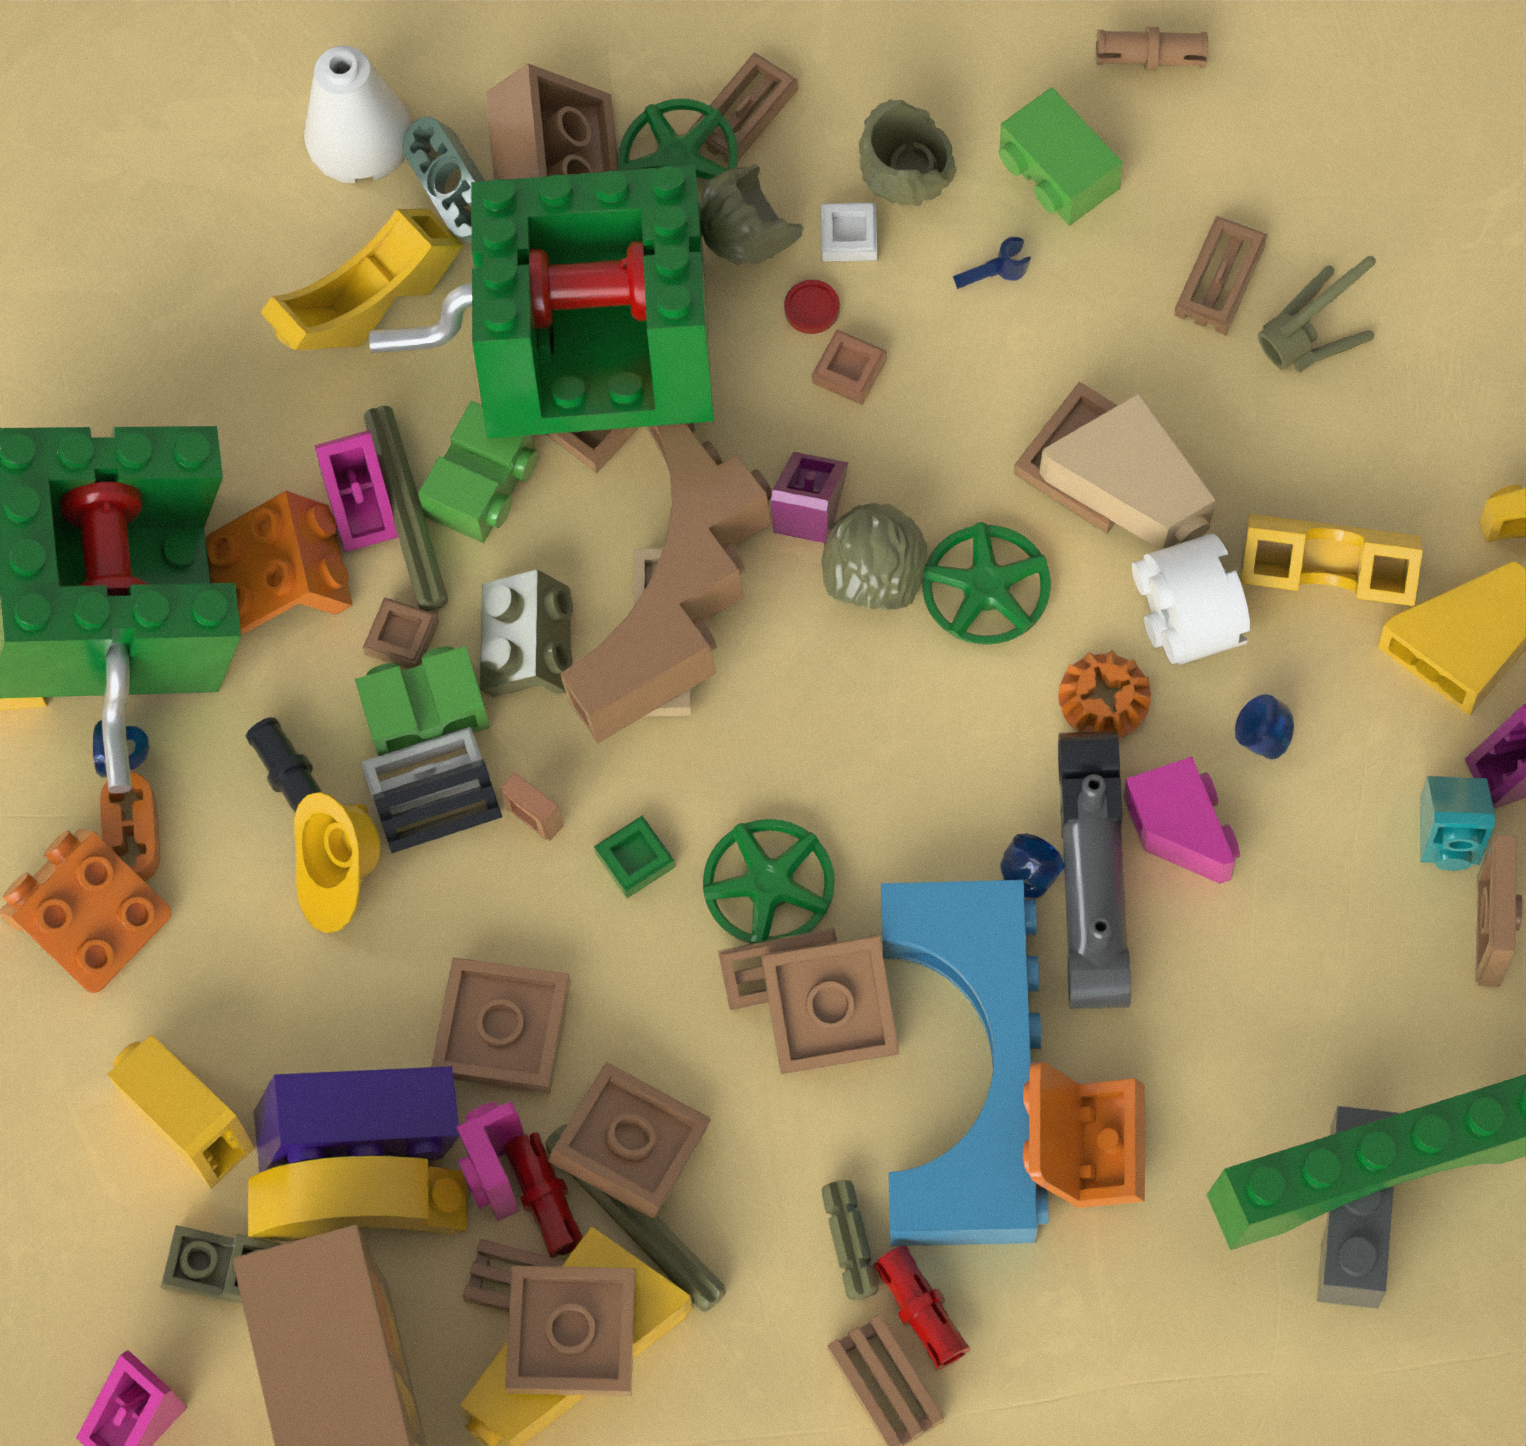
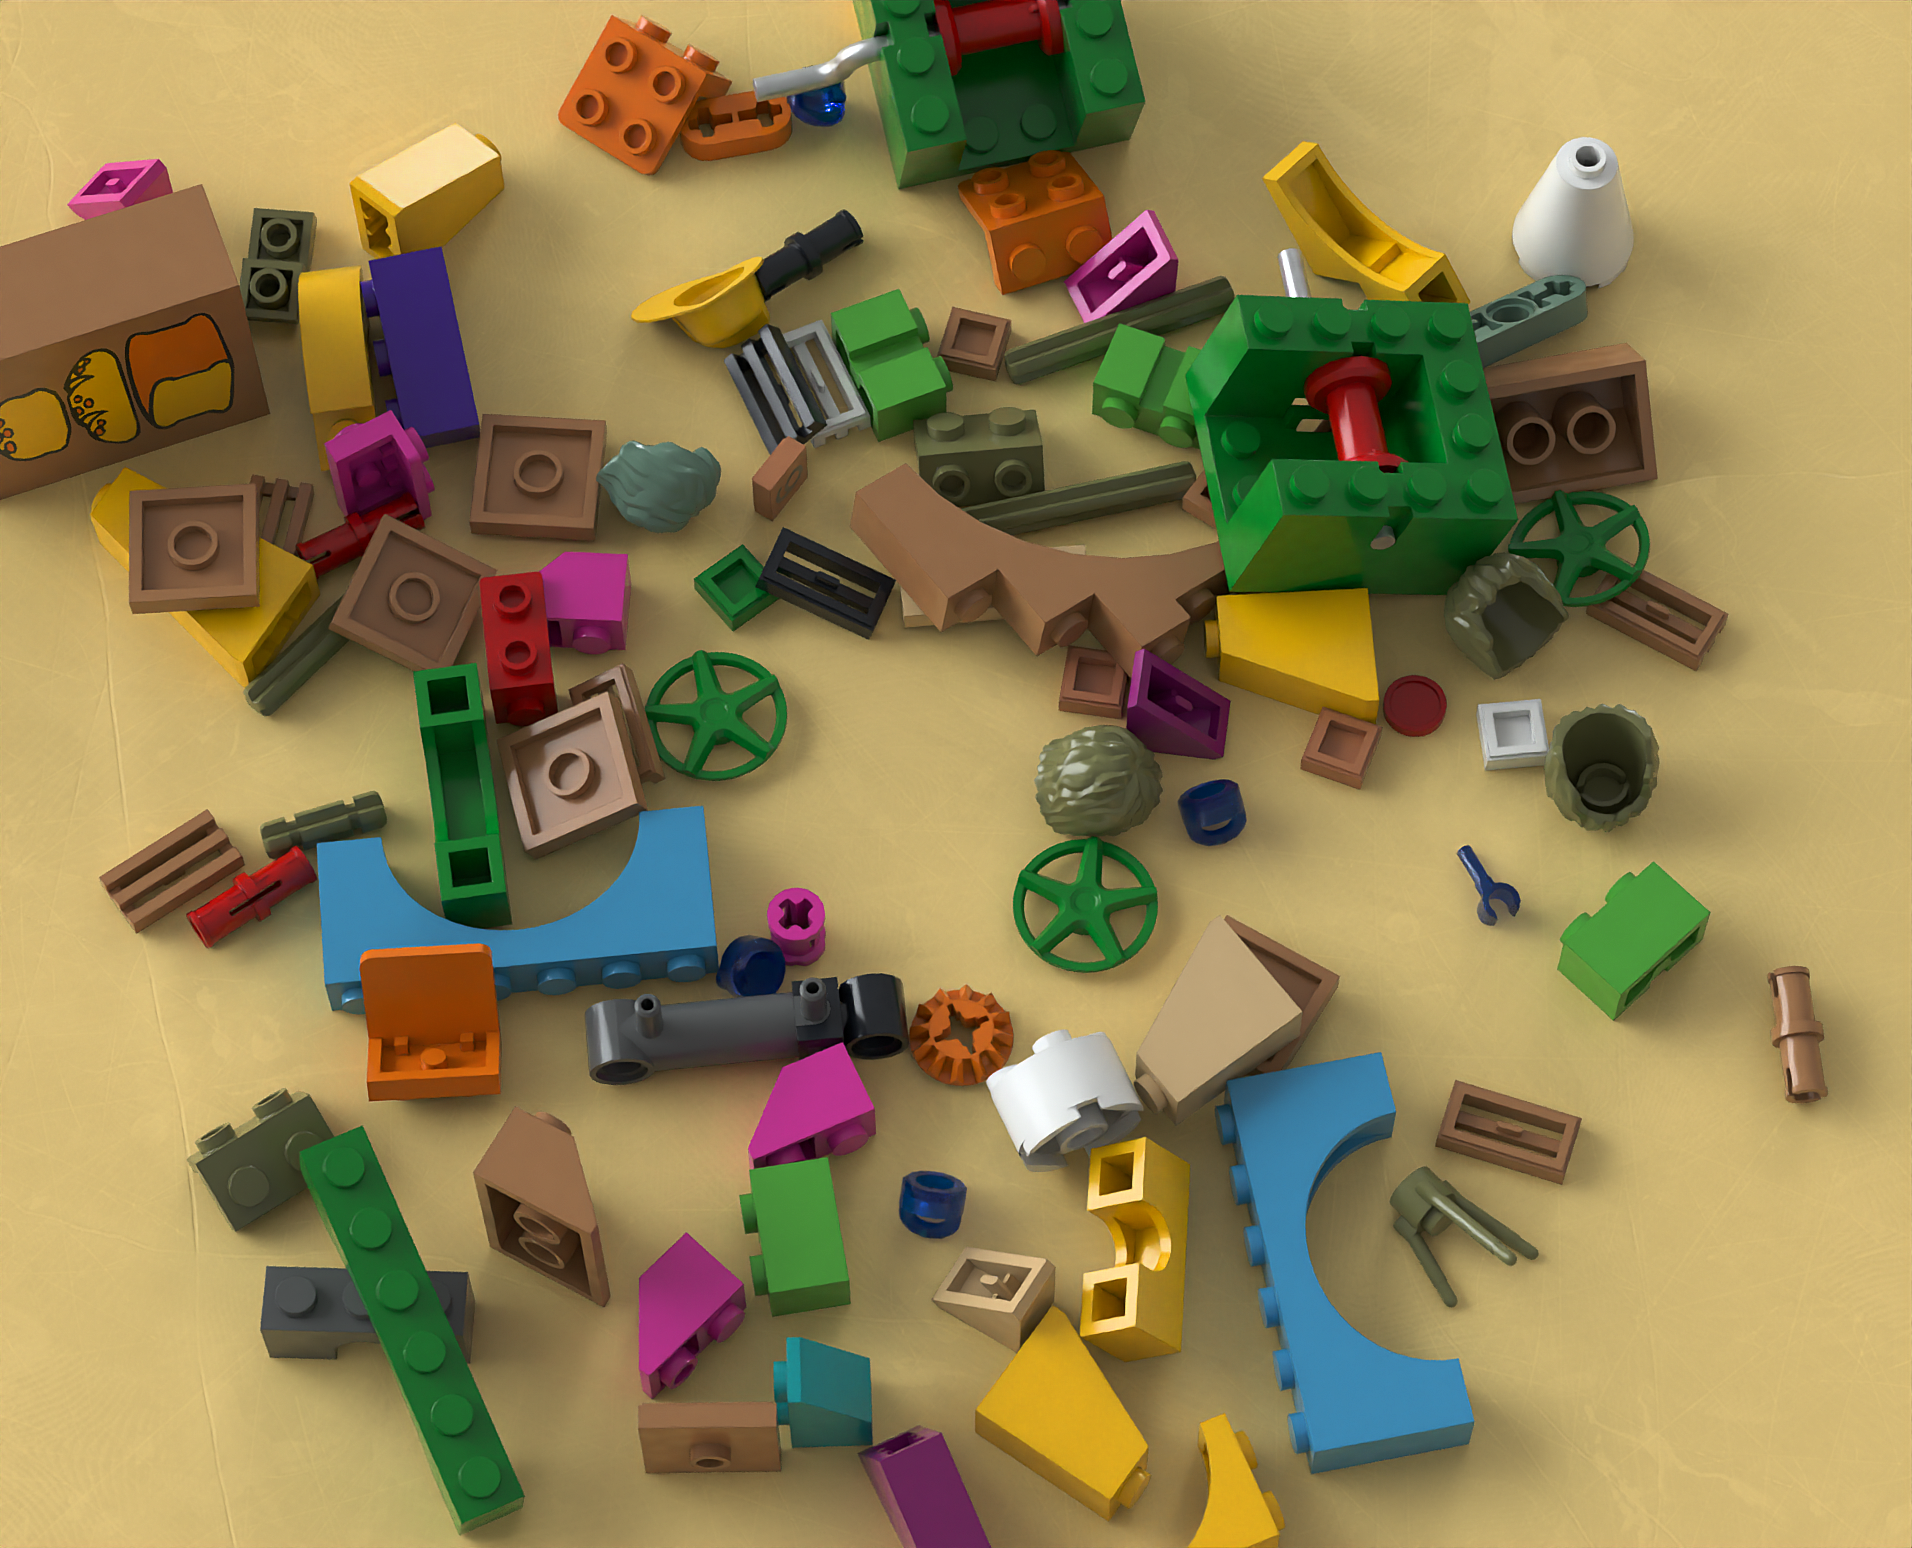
camera: 80 degrees right, 5 degrees down
(530, 908) = (660, 484): none -> sand green hair
(580, 552) = (1087, 499): none -> olive axle
(625, 809) = (816, 602): none -> black tile
(644, 995) = (588, 601): none -> dark pink slope
(694, 1040) = (518, 648): none -> red bracket
(761, 379) = (1298, 648): none -> yellow slope
(768, 560) = (1092, 683): none -> nougat tile
(798, 1107) = (462, 796): none -> green arch
(904, 470) = (1210, 805): none -> clear blue tile
(995, 802) = (800, 909): none -> dark pink bush
(1189, 1300) = (259, 1161): none -> olive bracket
(1283, 1024) = (541, 1205): none -> medium nougat slope
(1296, 836) = (798, 1237): none -> bright green brick
(1357, 676) = (998, 1293): none -> tan slope
(1363, 941) = (683, 1308): none -> dark pink slope
(1456, 418) = (1347, 1392): none -> dark azure arch

